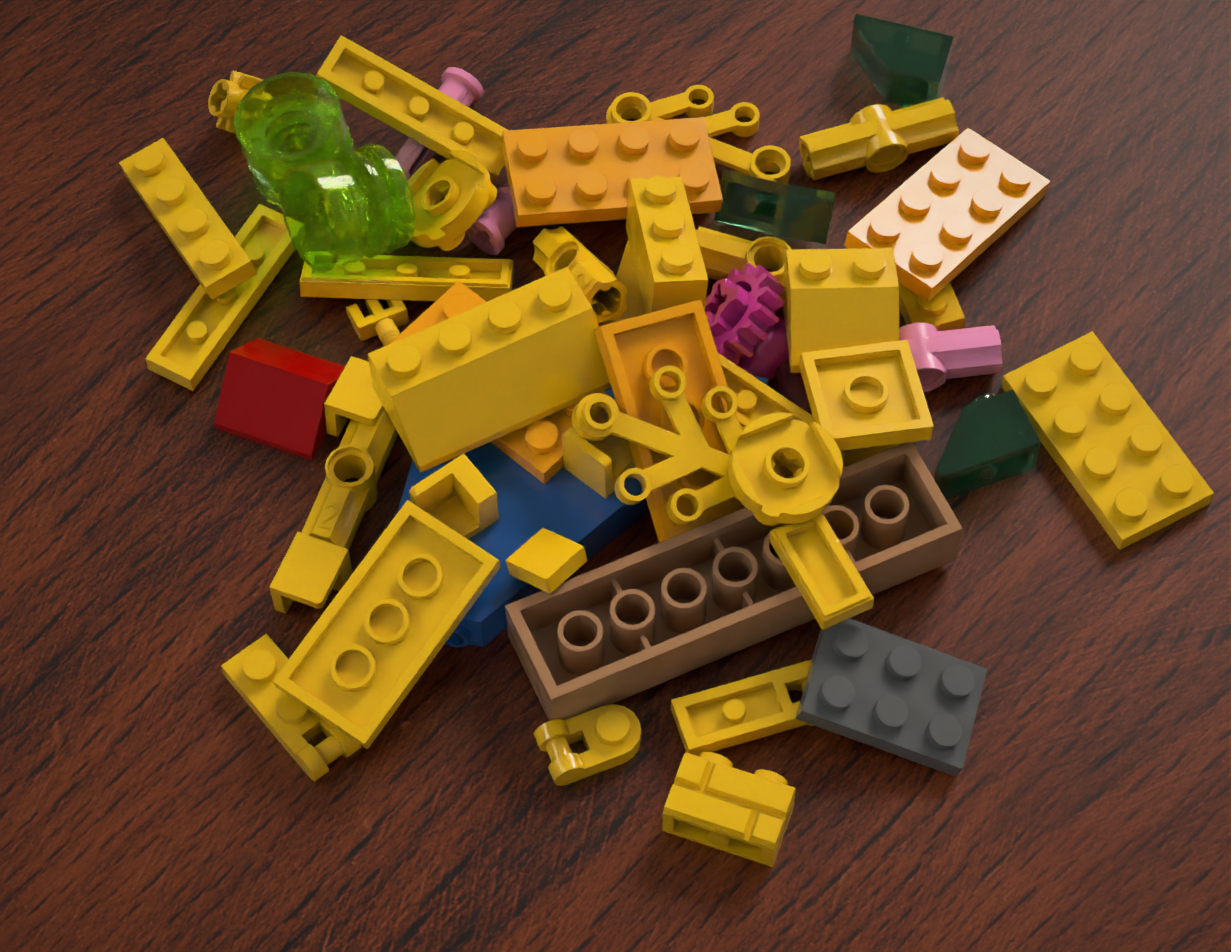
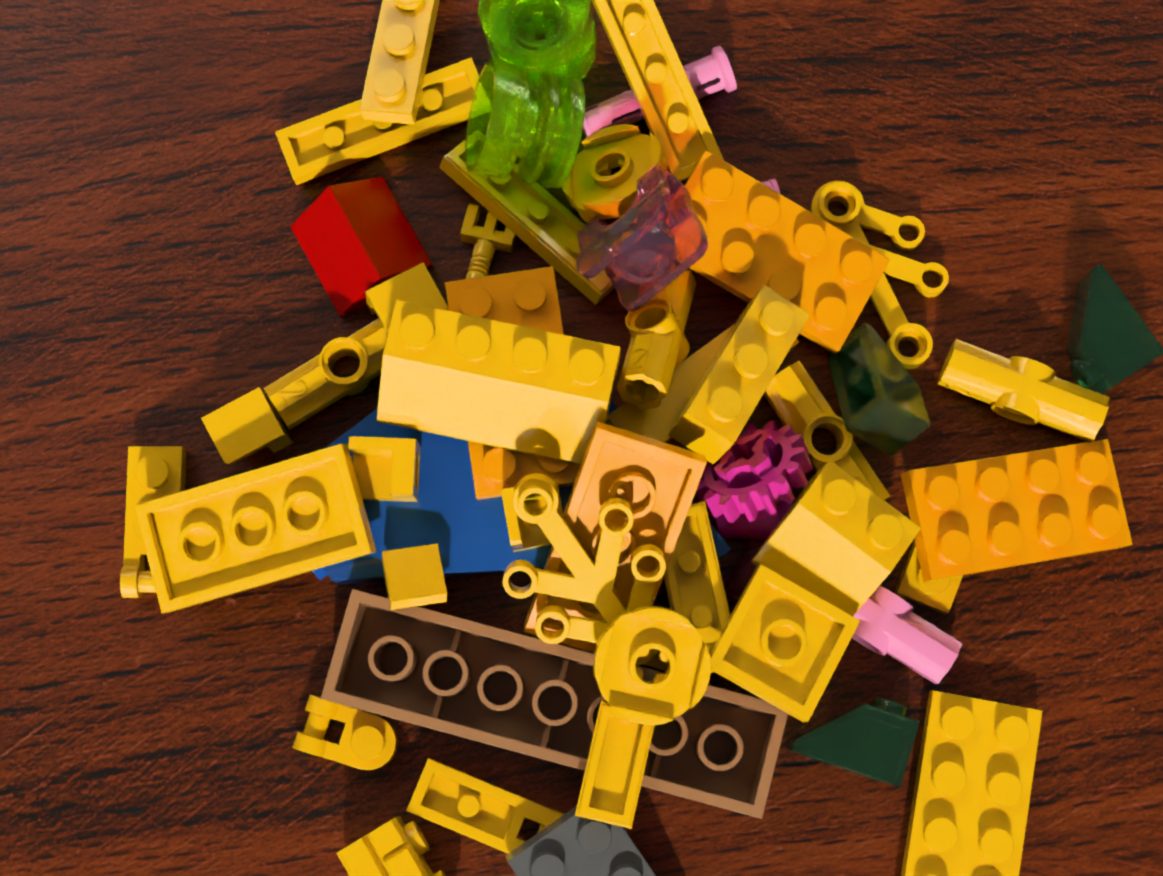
camera: 40 degrees right, 20 degrees up
(517, 213) = (648, 243): none -> clear pink piece

